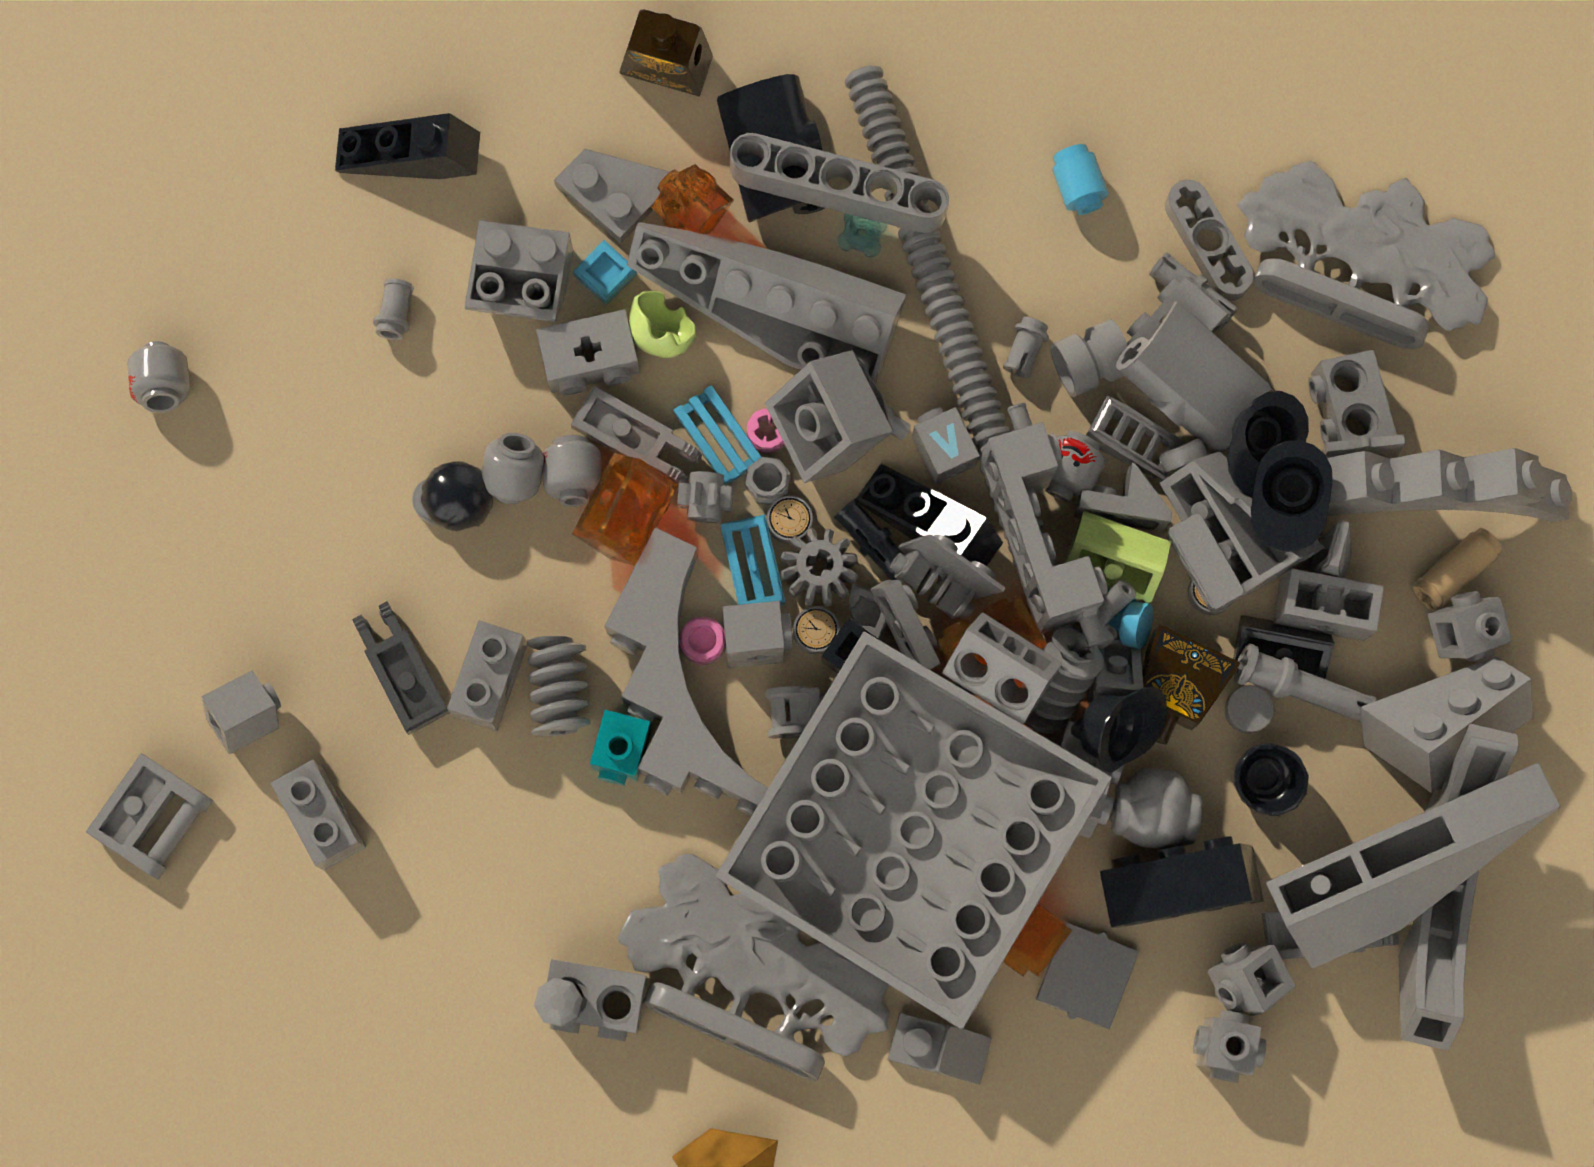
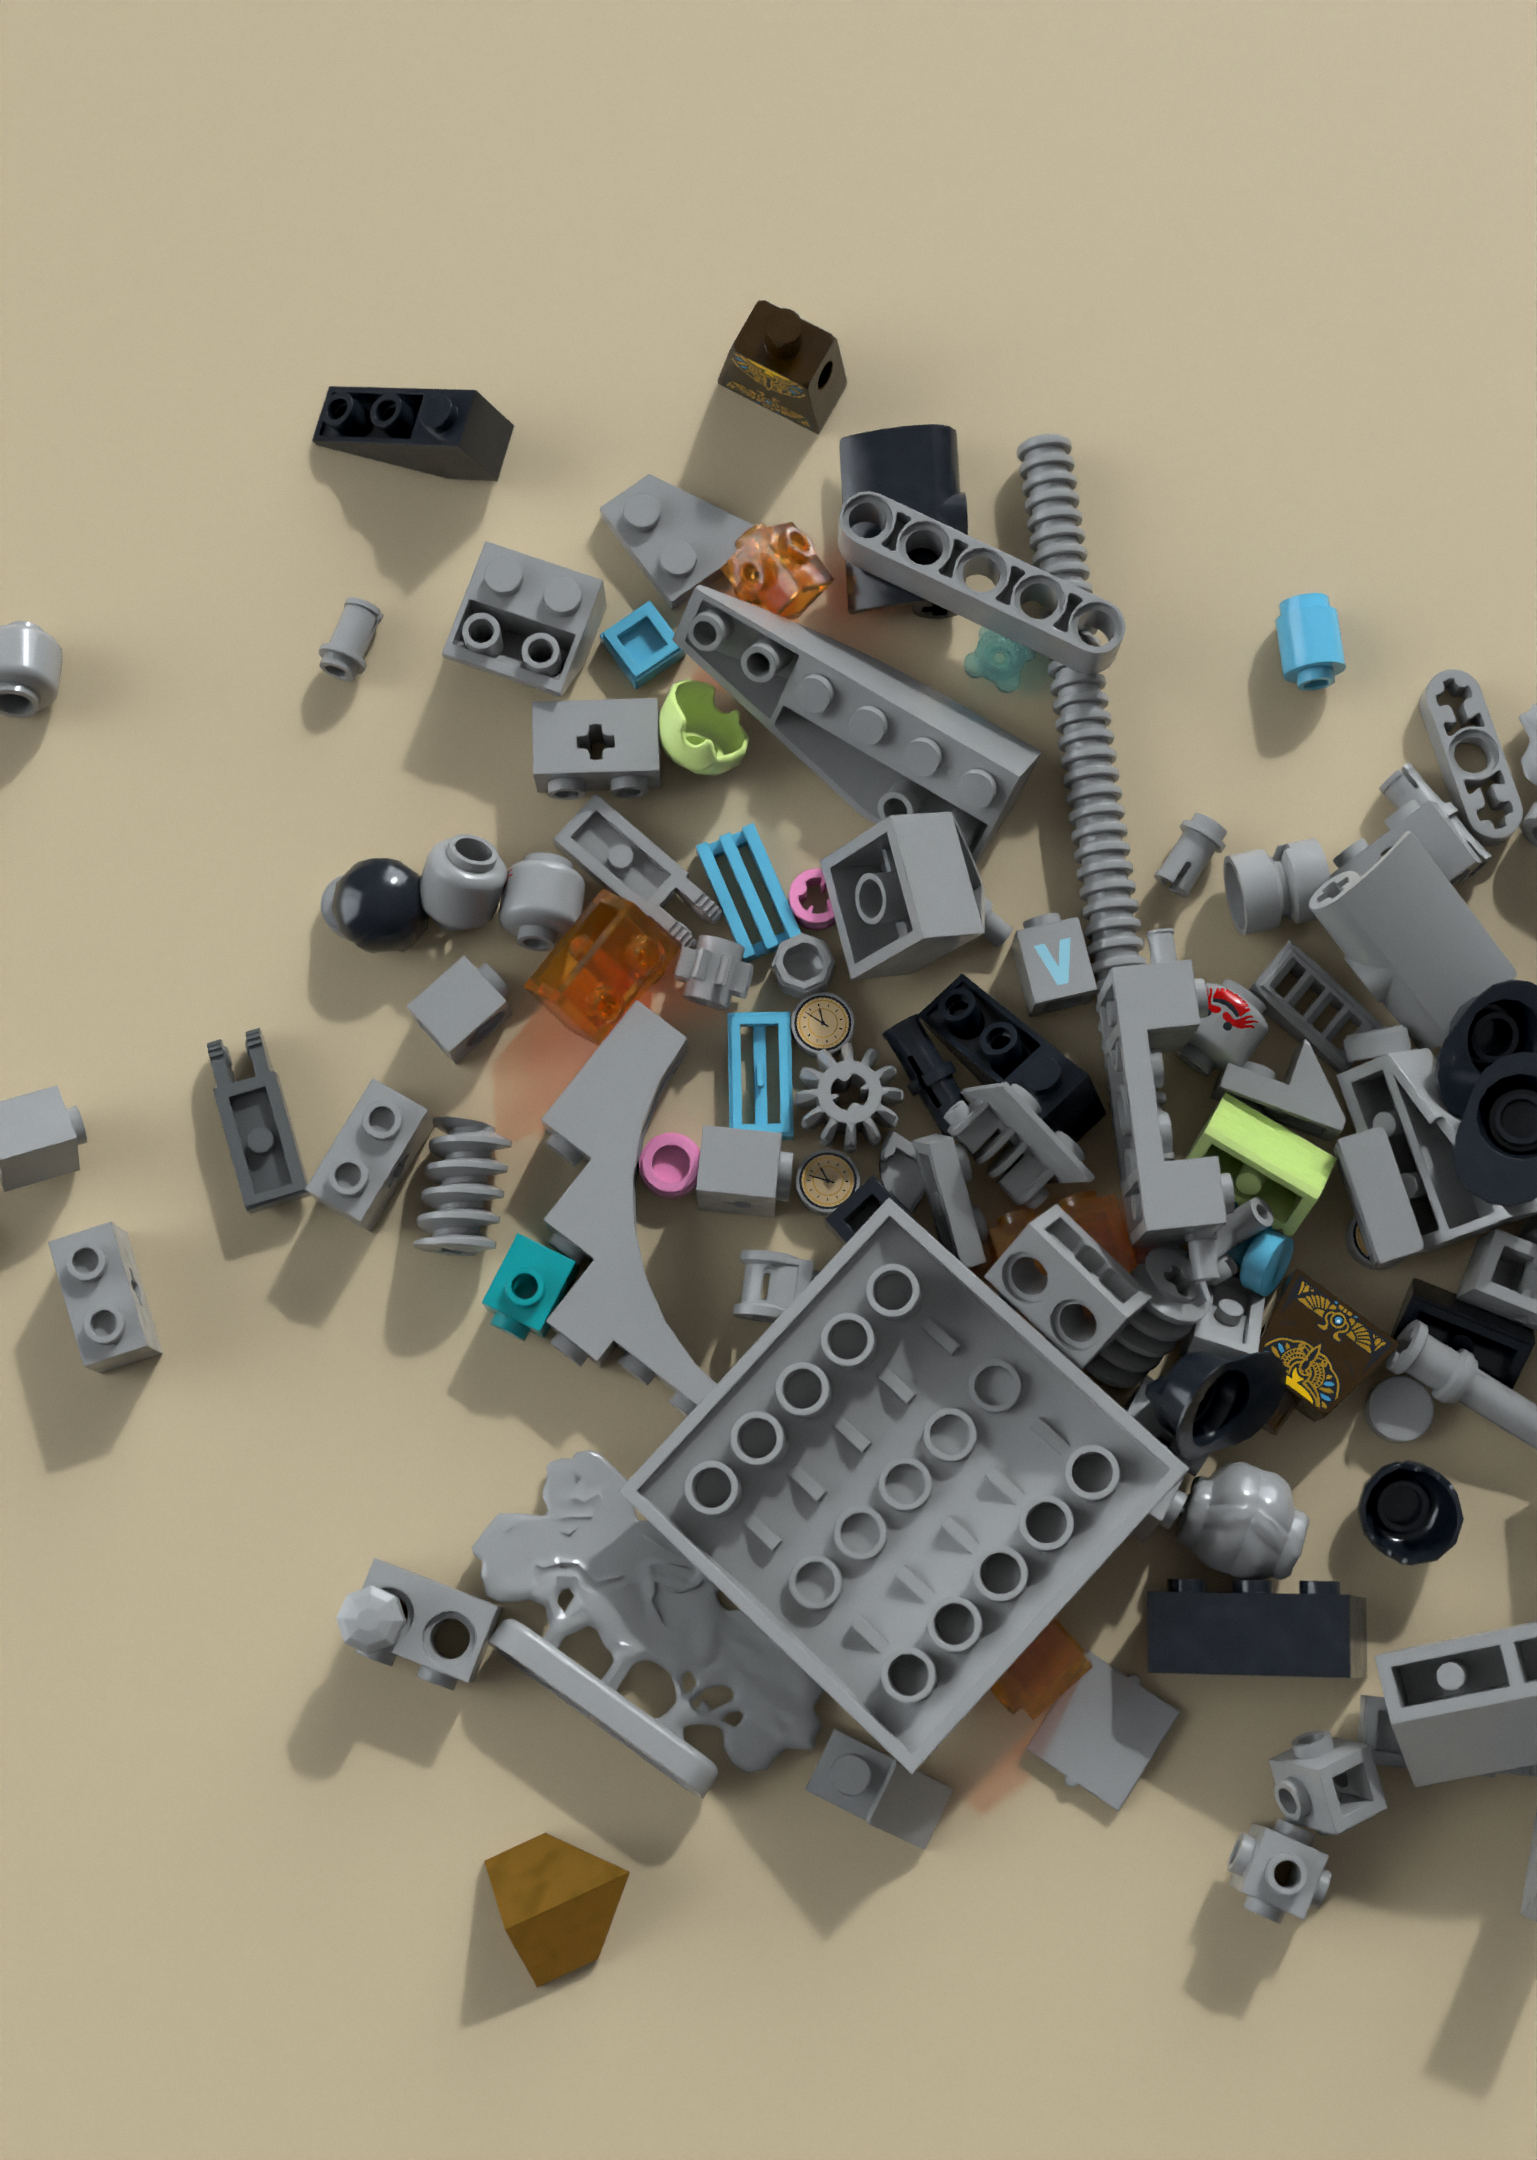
camera: 15 degrees right, 0 degrees up
(530, 558) = (461, 1008): none -> light grey brick

